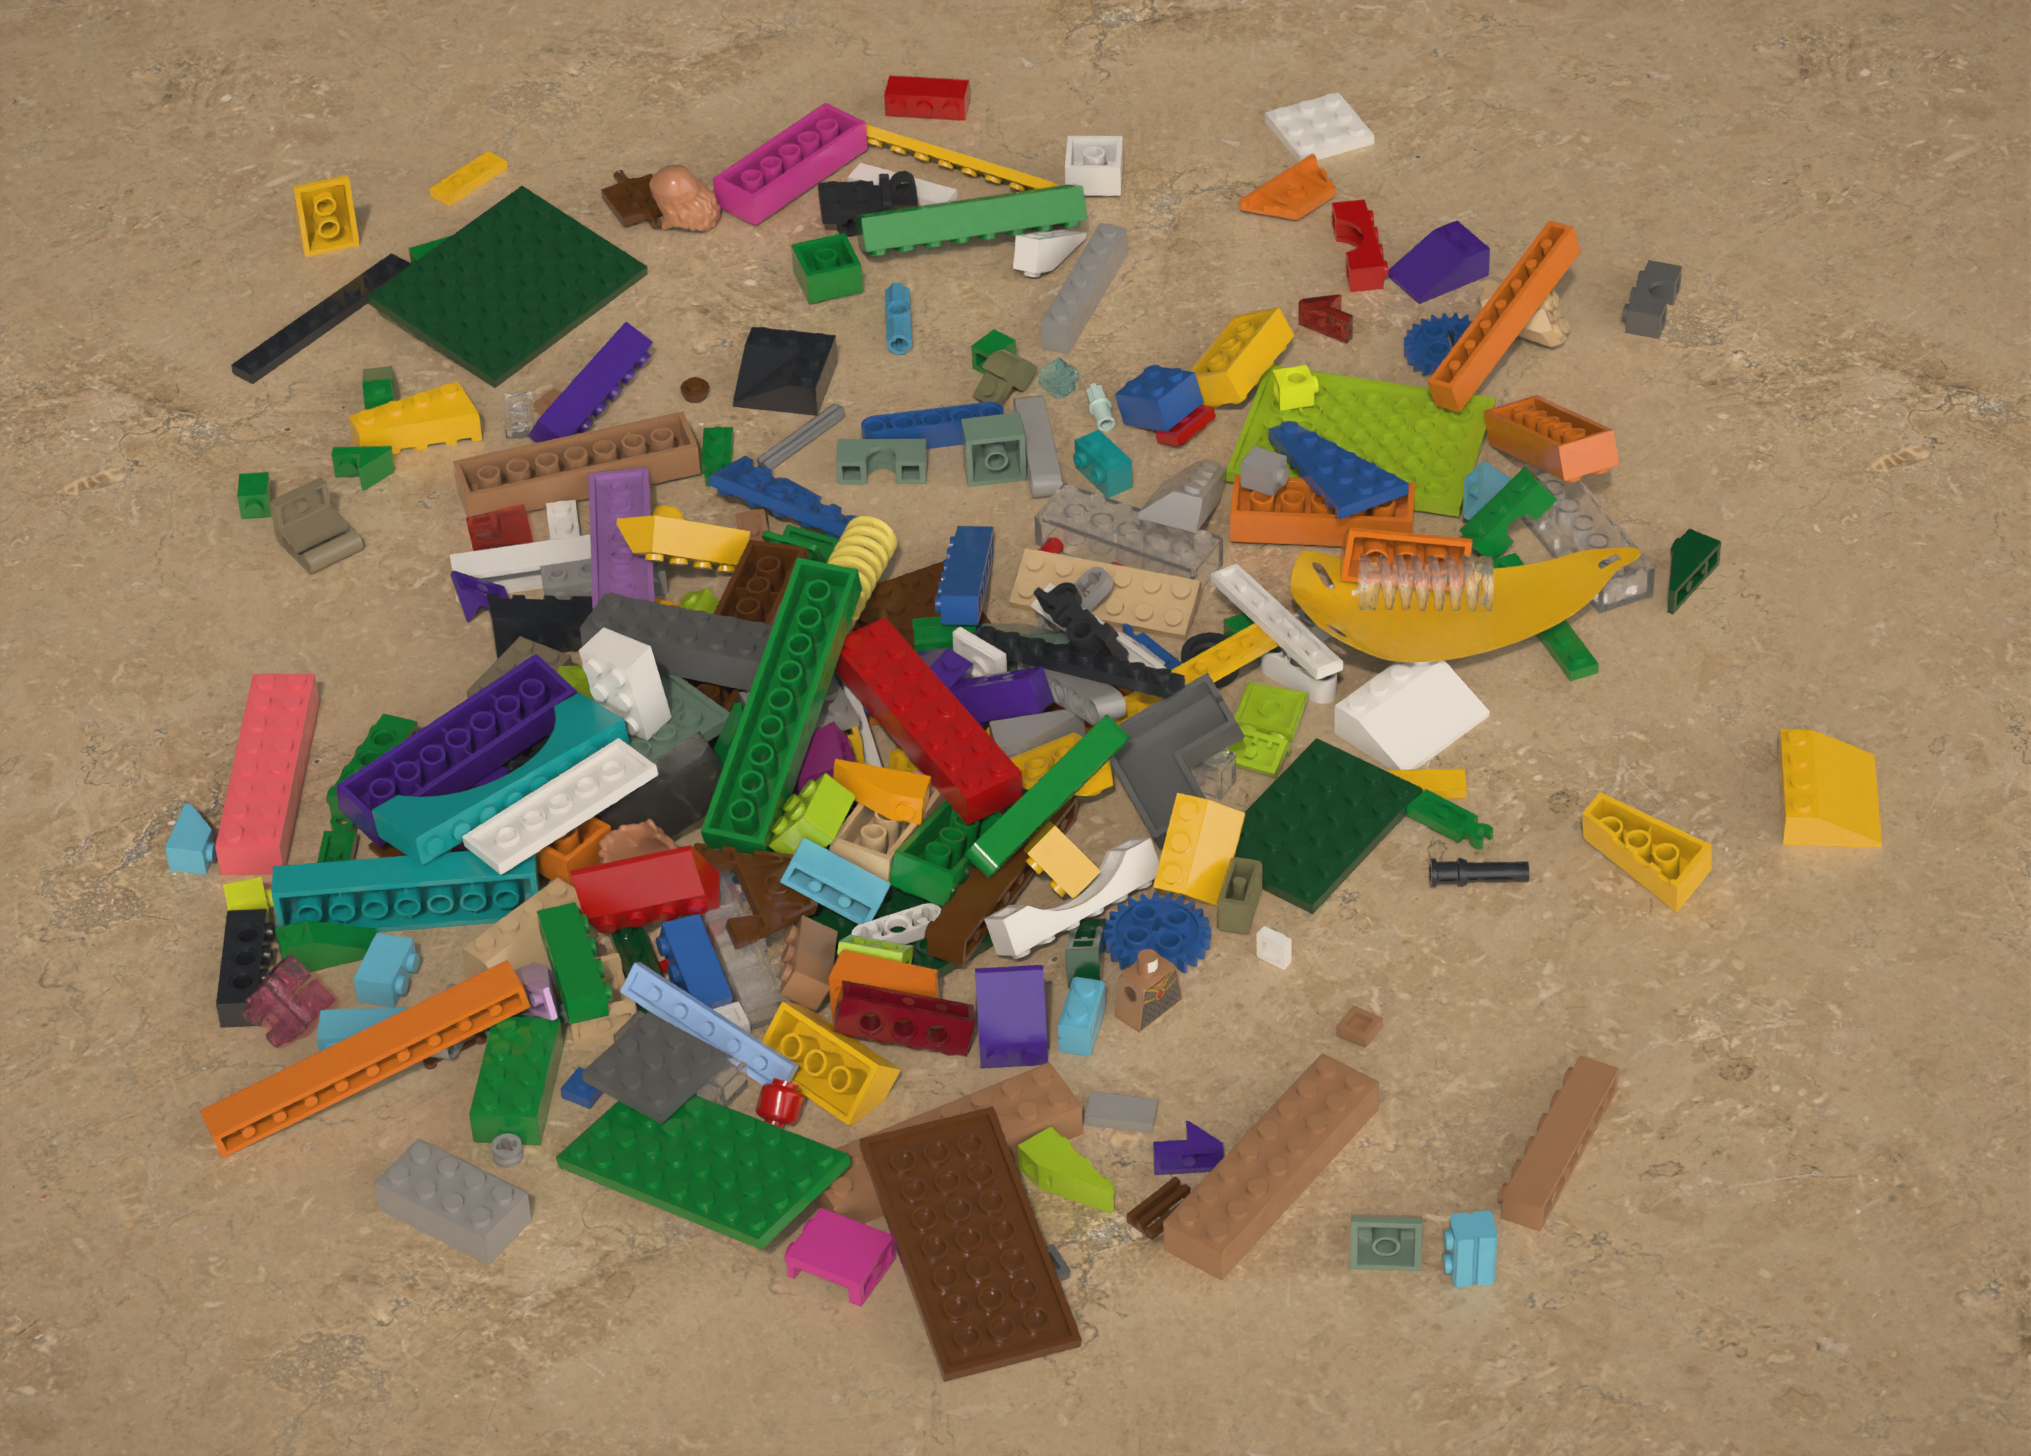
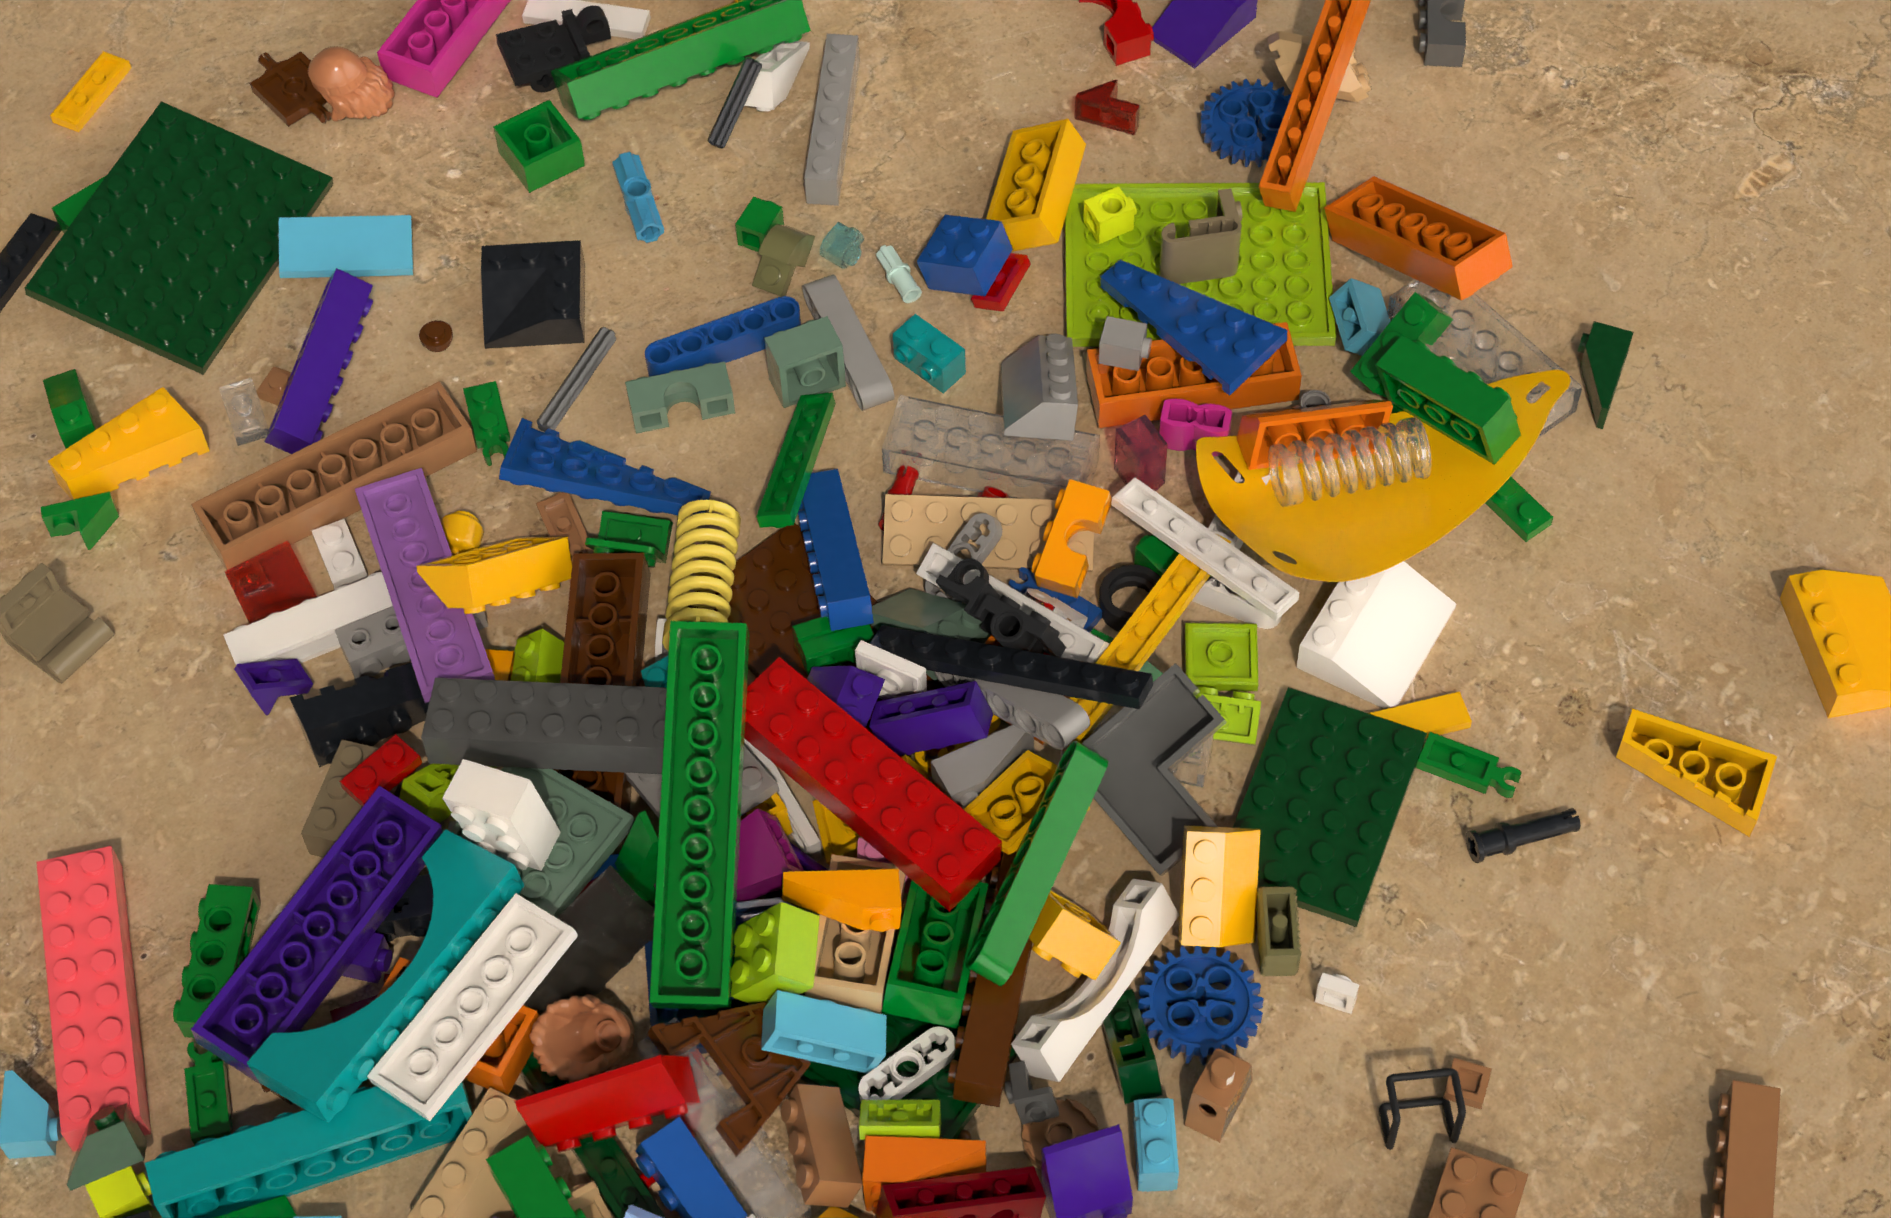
camera: 15 degrees left, 15 degrees up
(247, 859) = (108, 1145): none -> dark green slope
(555, 652) = (382, 768): none -> red plate
(653, 314) = (350, 243): none -> medium azure tile
(959, 512) = (796, 461): none -> green plate
(986, 955) = (1030, 1104): none -> dark grey bracket
(1002, 260) = (734, 102): none -> black axle
(1180, 580) = (1079, 509): none -> light orange arch
(1254, 553) = (1140, 453): none -> clear pink brick
(1281, 1035) = (1453, 1129): none -> black piece
(1299, 536) = (1186, 422): none -> dark pink brick
(1365, 419) = (1209, 249): none -> dark tan piece
(1529, 552) = (1449, 398): none -> green brick

